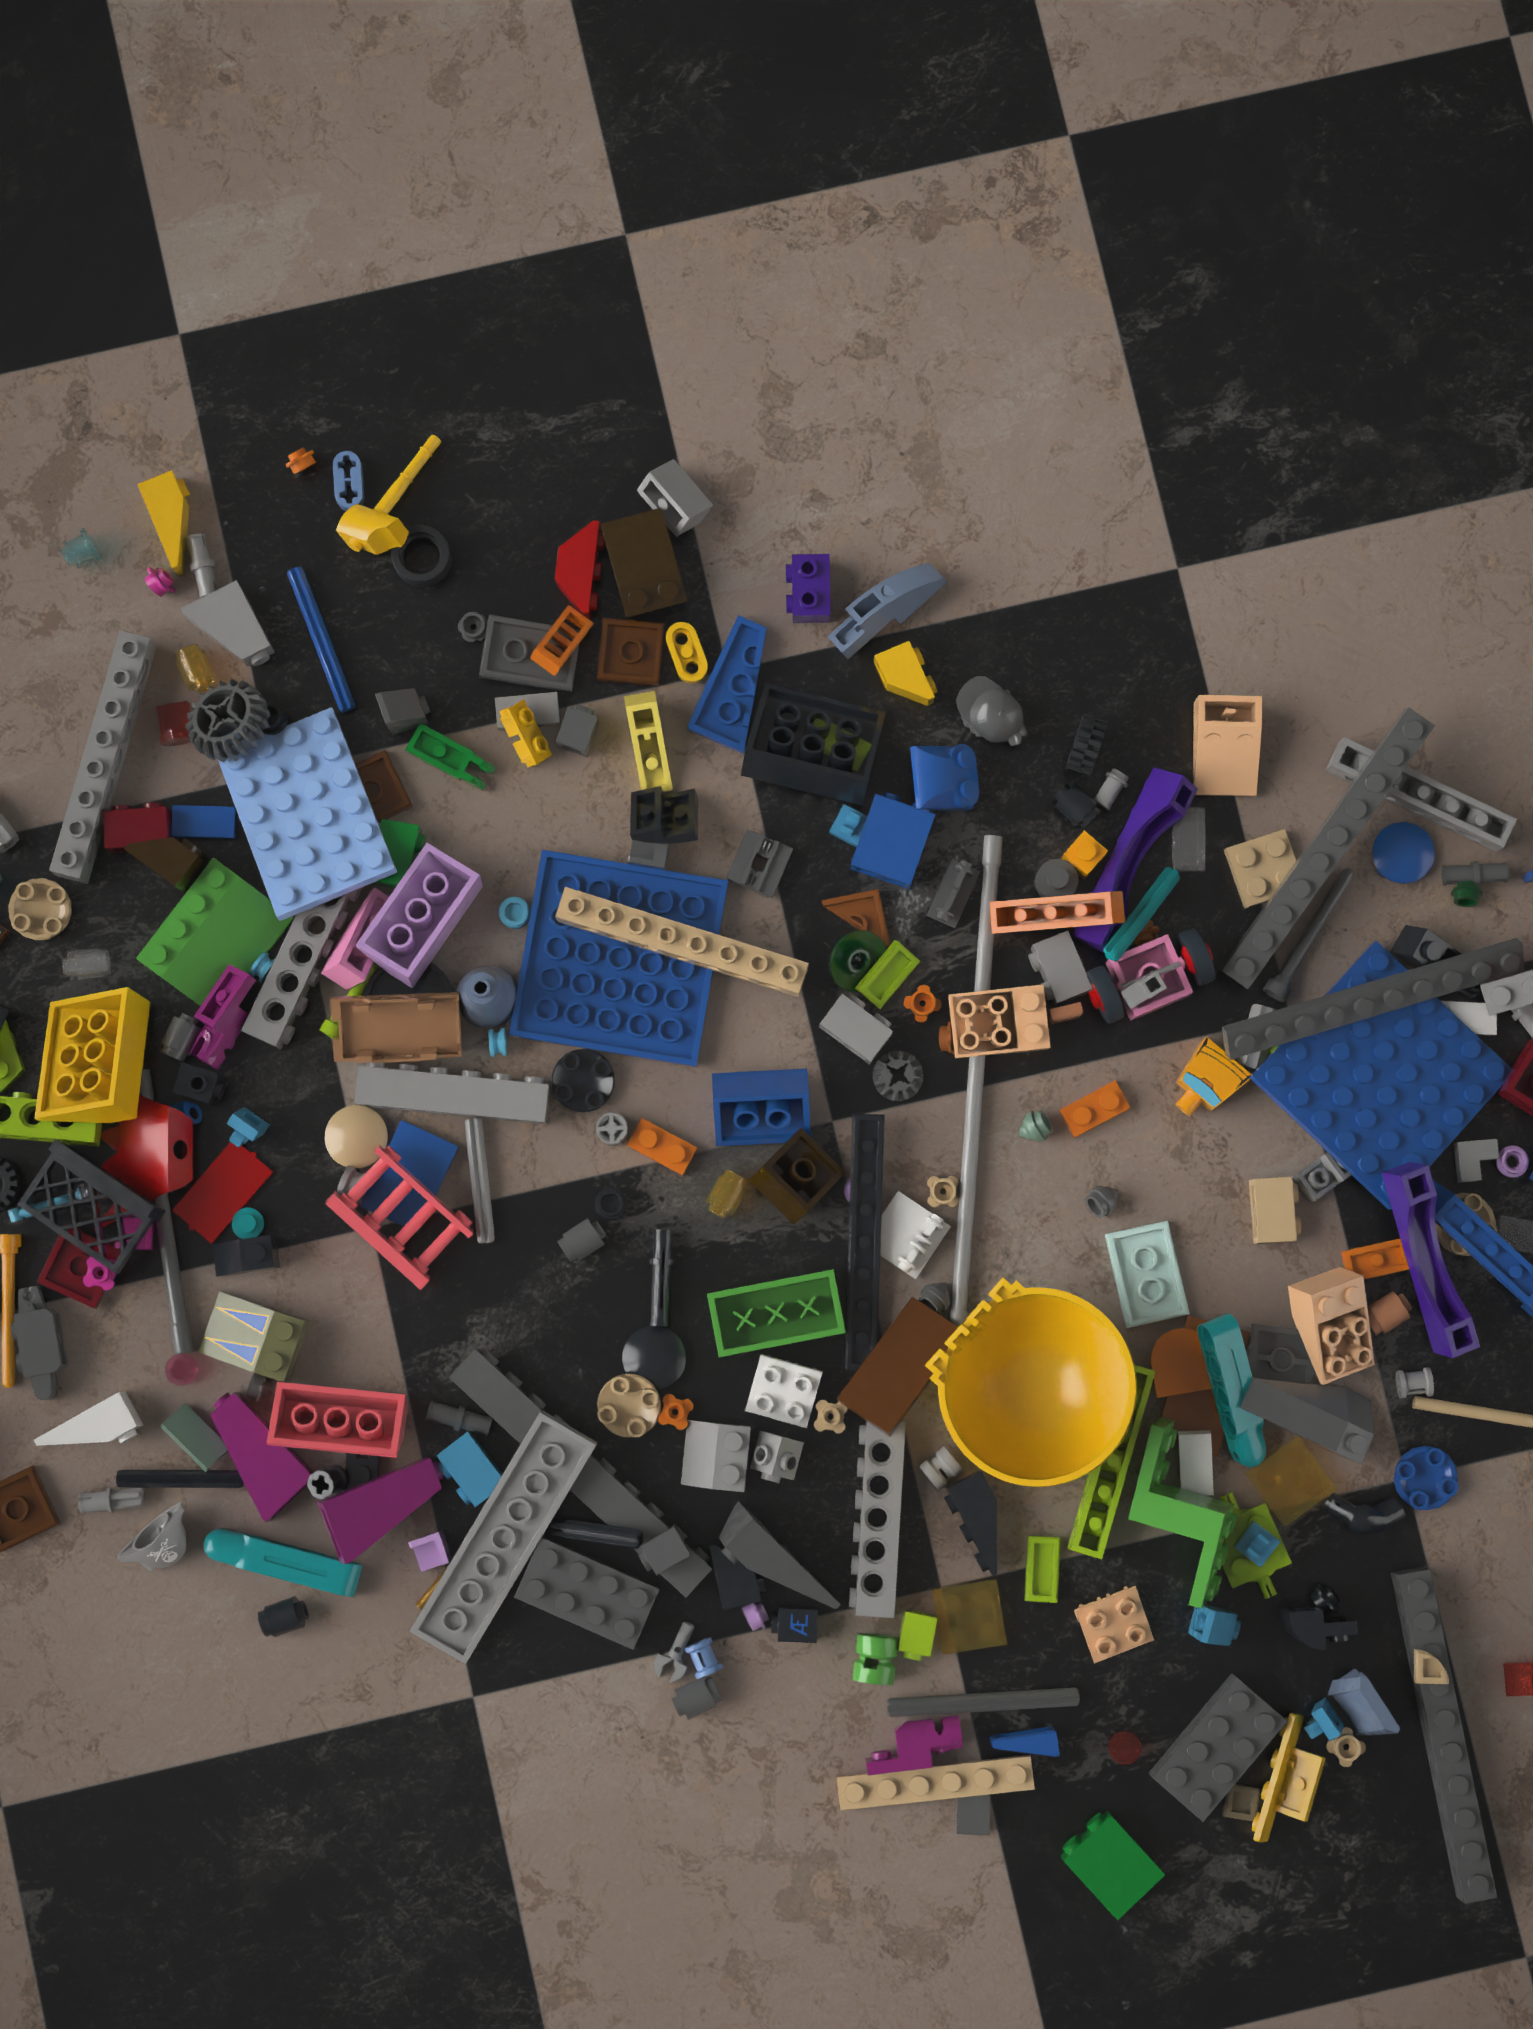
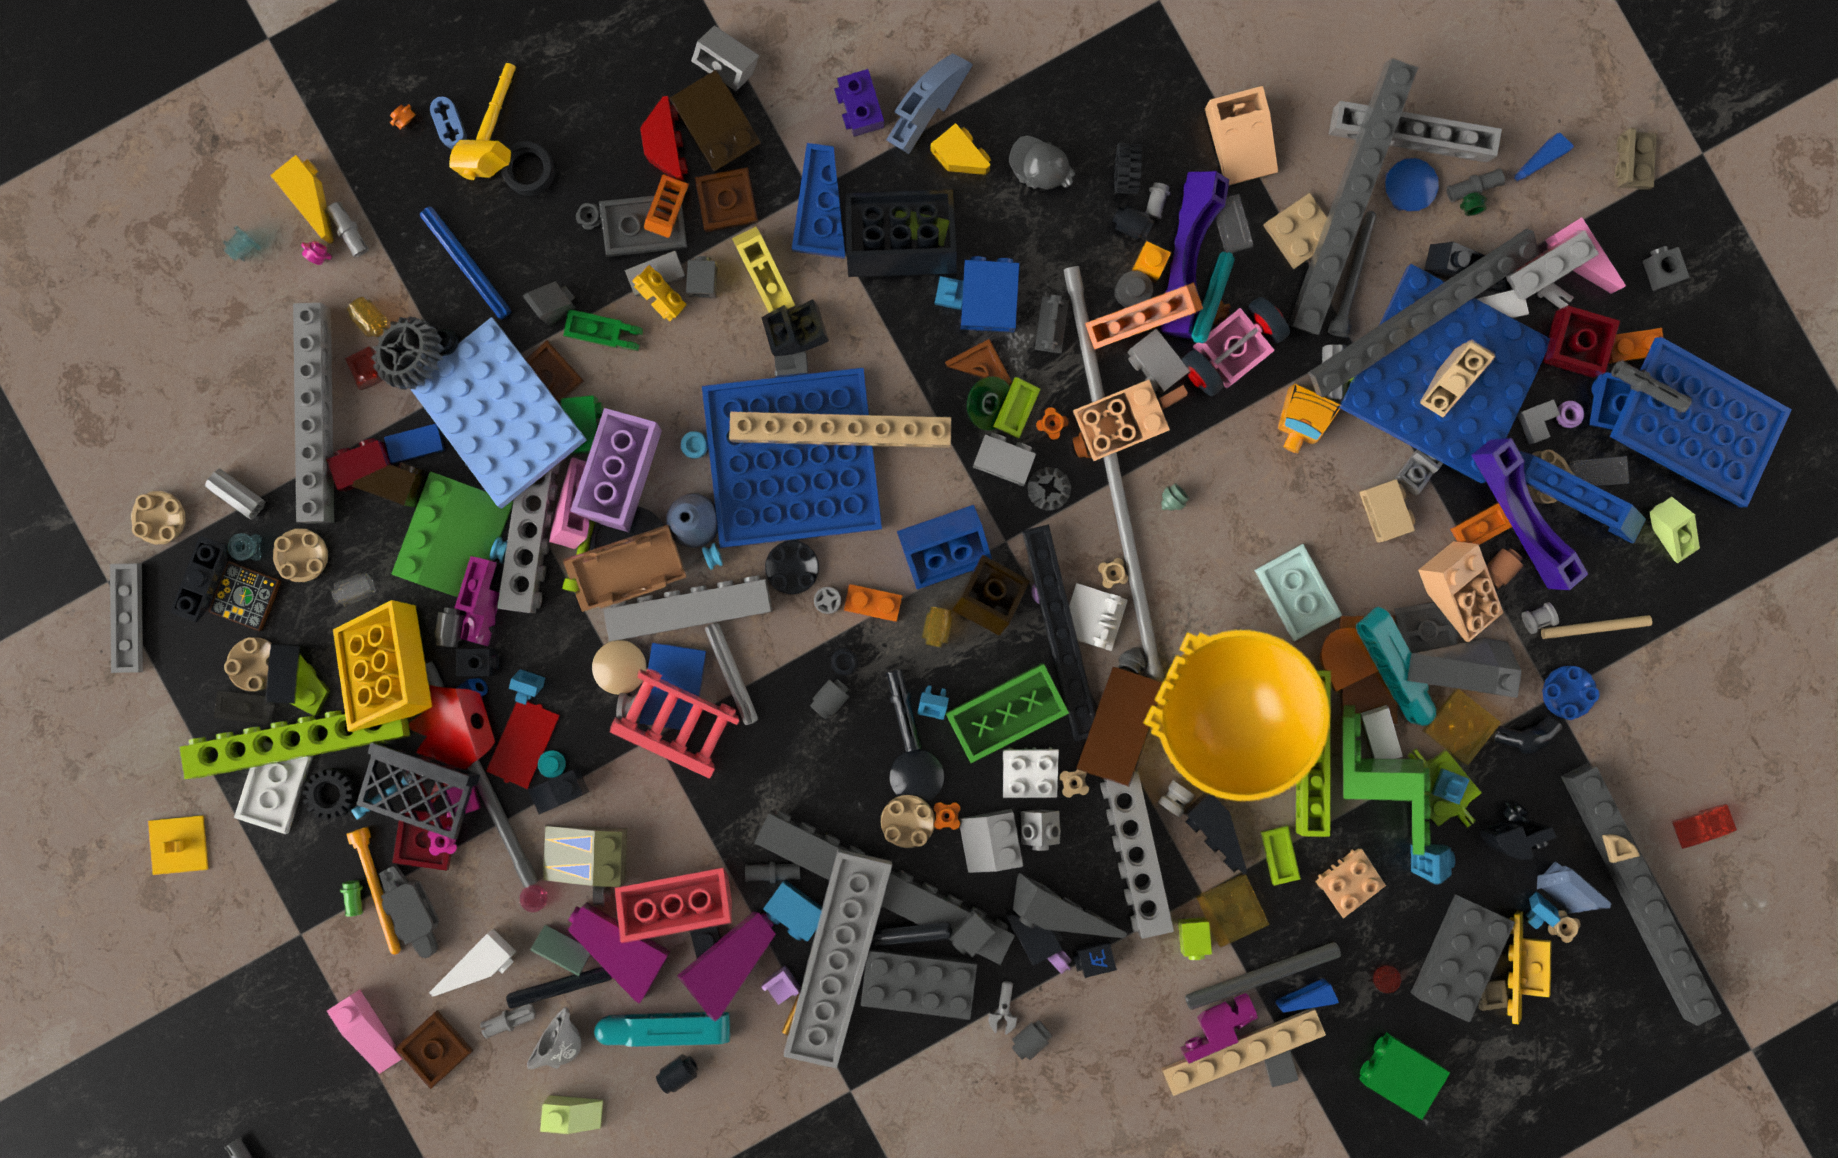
camera: 25 degrees left, 5 degrees up
(149, 1628) = (570, 1114): none -> yellowish green slope
(231, 623) = (386, 270): light grey slope -> none
(327, 1481) = (678, 958): black bush -> none
(686, 654) = (774, 187): yellow plate -> none
(696, 1281) = (933, 705): none -> dark azure tile
(703, 1657) = (1027, 1007): medium blue bush -> none
(758, 845) = (892, 332): dark grey piece -> none
(875, 1647) = (1165, 958): bright green wheel -> none
(944, 777) = (1018, 230): blue slope -> none
(1094, 1109) = (1217, 469): orange plate -> none
(1102, 1201) = (1245, 543): dark grey plate -> none
(1142, 989) = (1233, 359): light grey piece -> none
(1386, 1080) = (1456, 376): none -> tan slope

